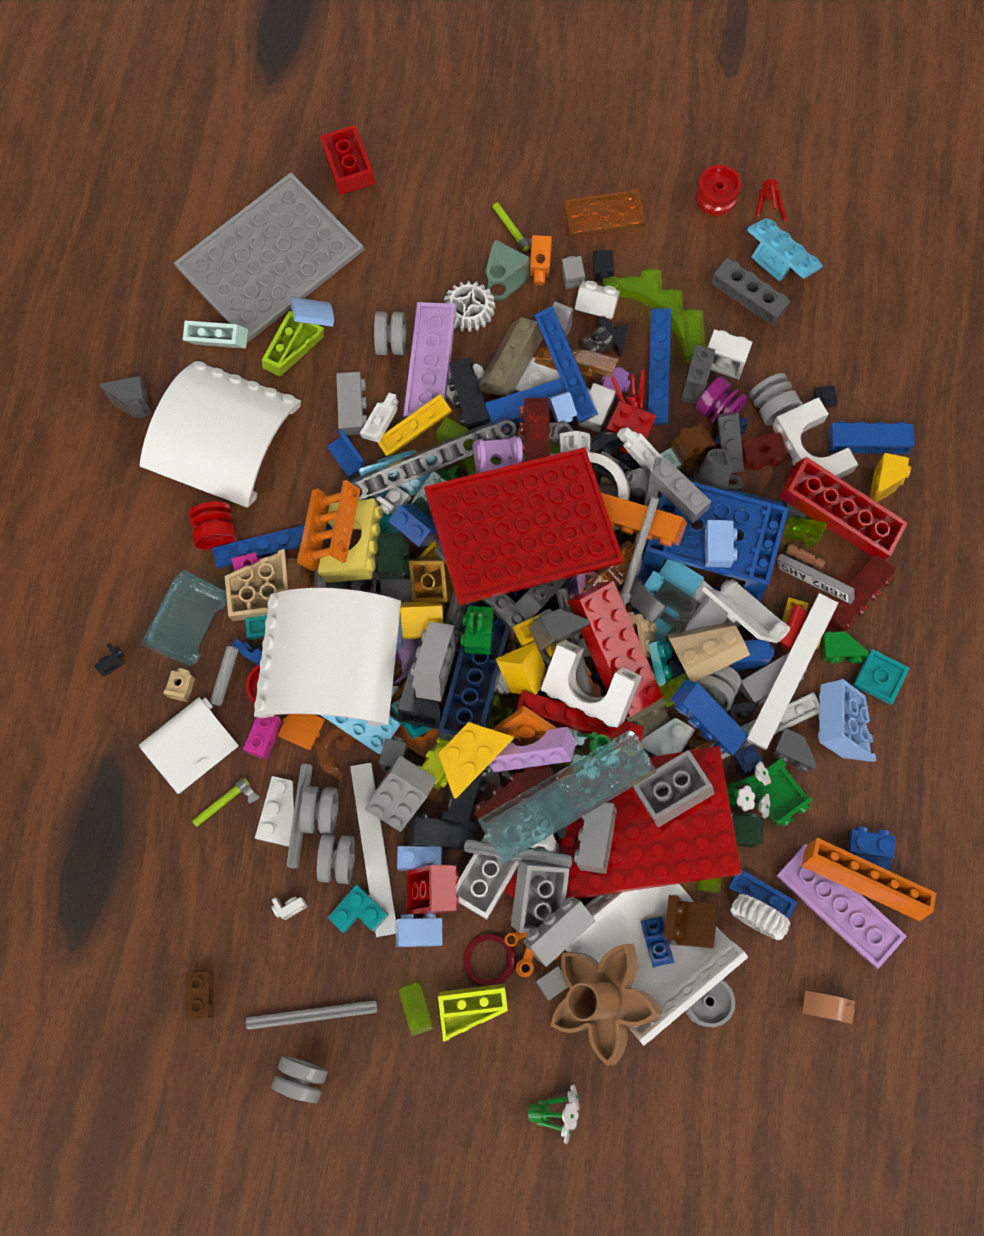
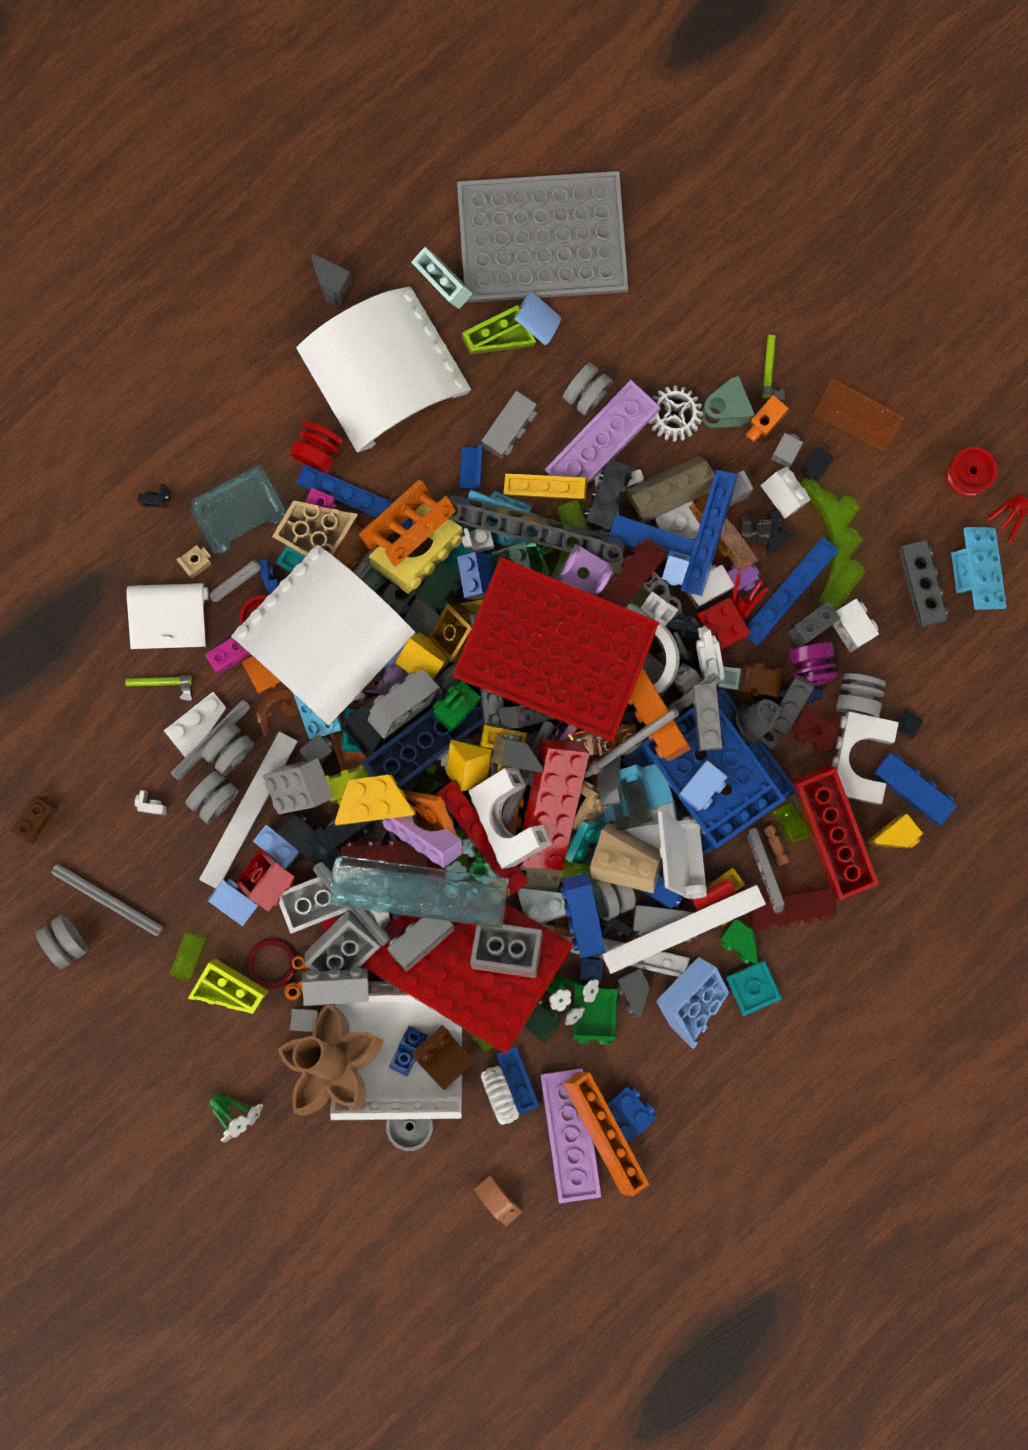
camera: 30 degrees right, 10 degrees up
(347, 159) = (675, 197): red brick -> none
(358, 905) = (203, 845): teal plate -> none
(380, 419) = (523, 458): white hinge -> none

